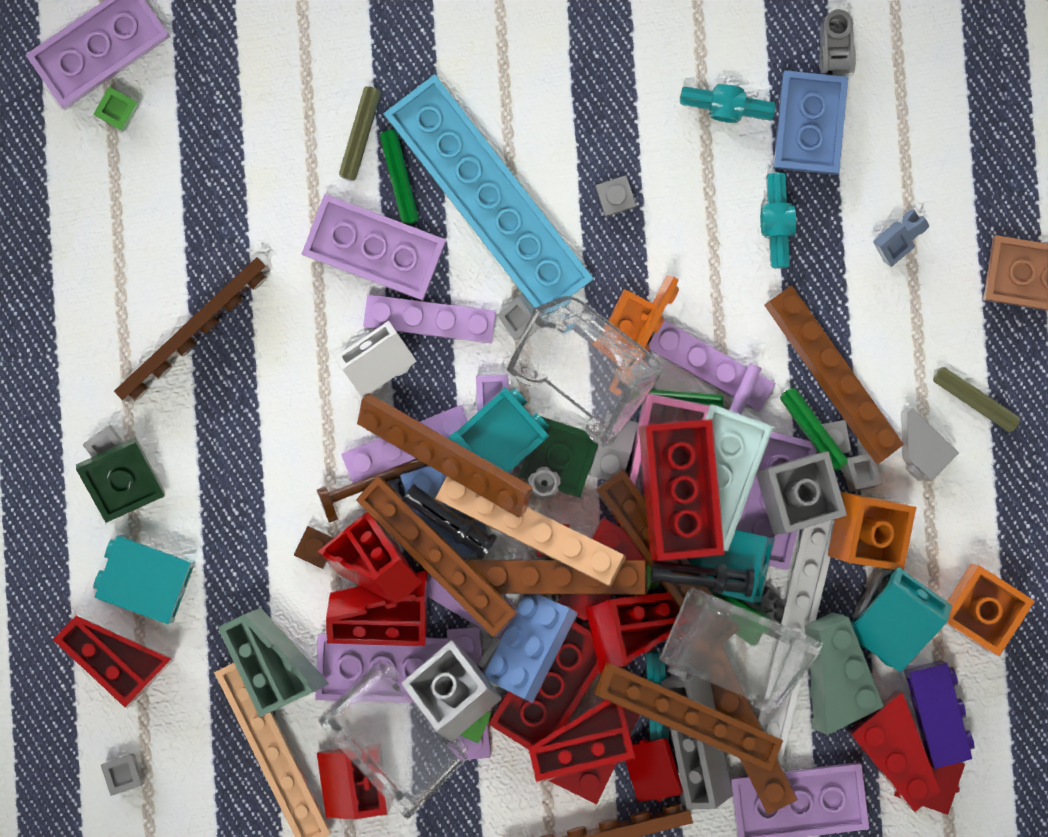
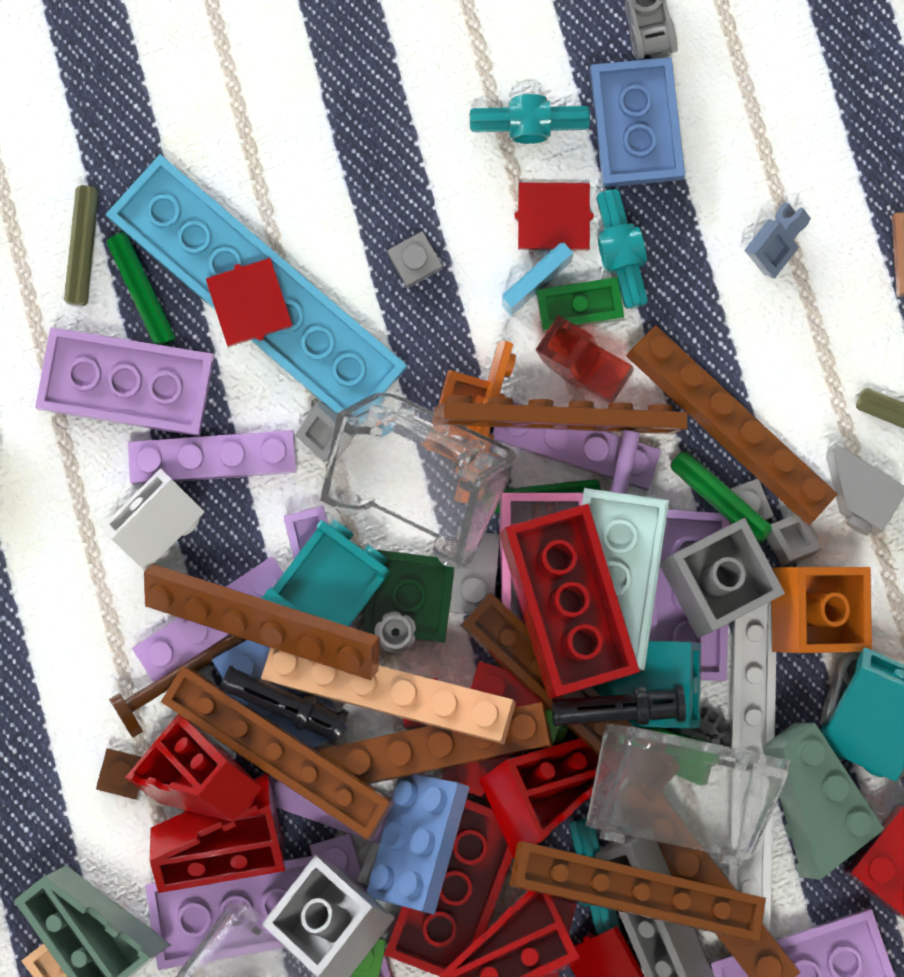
camera: 10 degrees left, 5 degrees down
(481, 205) = (249, 302): none -> red piece
(691, 340) = (544, 415): none -> dark orange plate
(707, 230) = (536, 278): none -> medium azure tile
(729, 303) = (581, 362): none -> clear red brick
(730, 183) = (553, 215): none -> red piece
(736, 257) = (581, 303): none -> green plate

